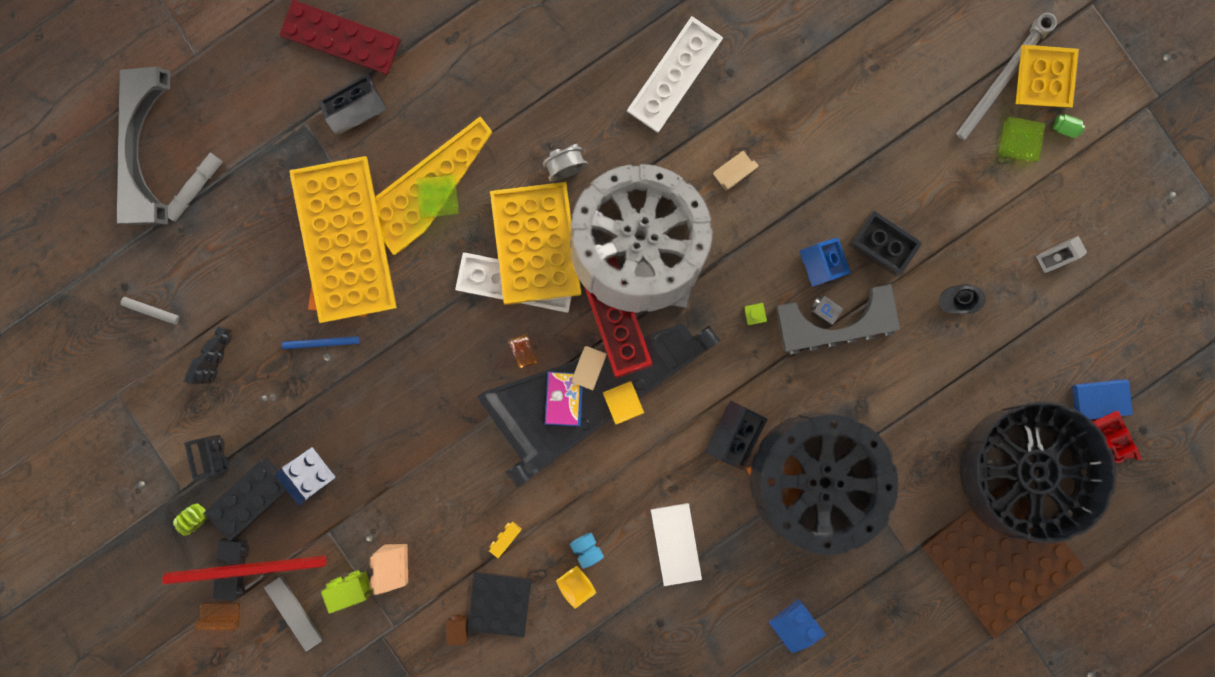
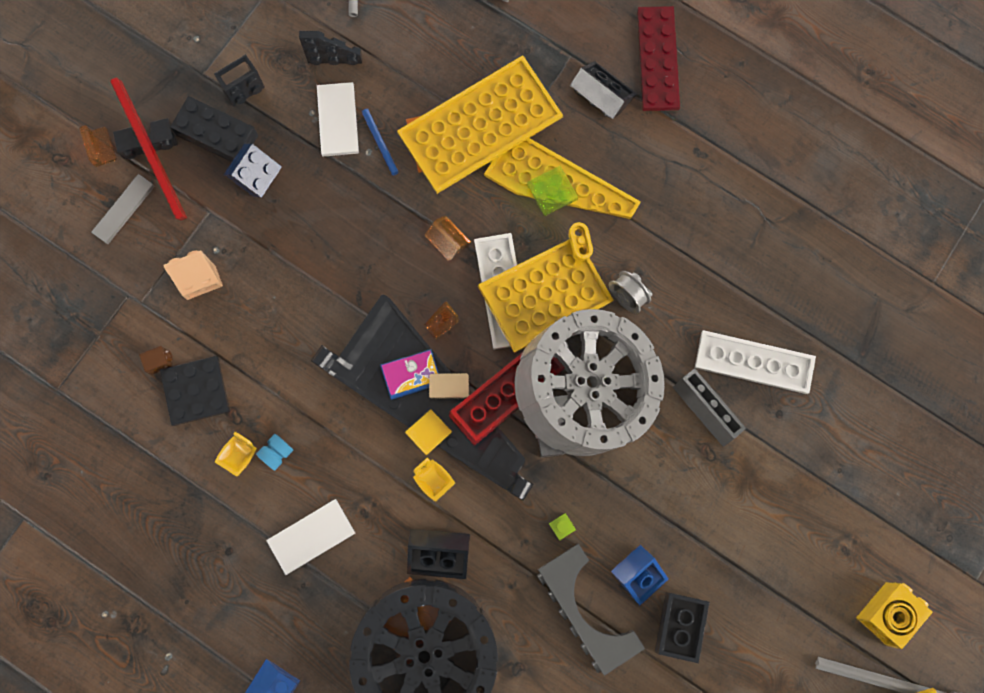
camera: 65 degrees right, 10 degrees down
(190, 519) = (178, 87): lime gear -> none
(281, 375) = (337, 119): none -> white tile
(347, 591) = (158, 243): lime piece -> none
(443, 314) = (447, 237): none -> clear orange panel
(499, 189) = (580, 242): none -> yellow plate
(504, 539) = (258, 372): yellow piece -> none
(668, 414) = (433, 479): none -> yellow piece
(701, 135) = (709, 407): none -> dark grey brick
(735, 170) = (690, 454): tan panel -> none
(826, 310) = (593, 594): flat silver brick -> none
(947, 50) = (894, 614): none -> yellow brick

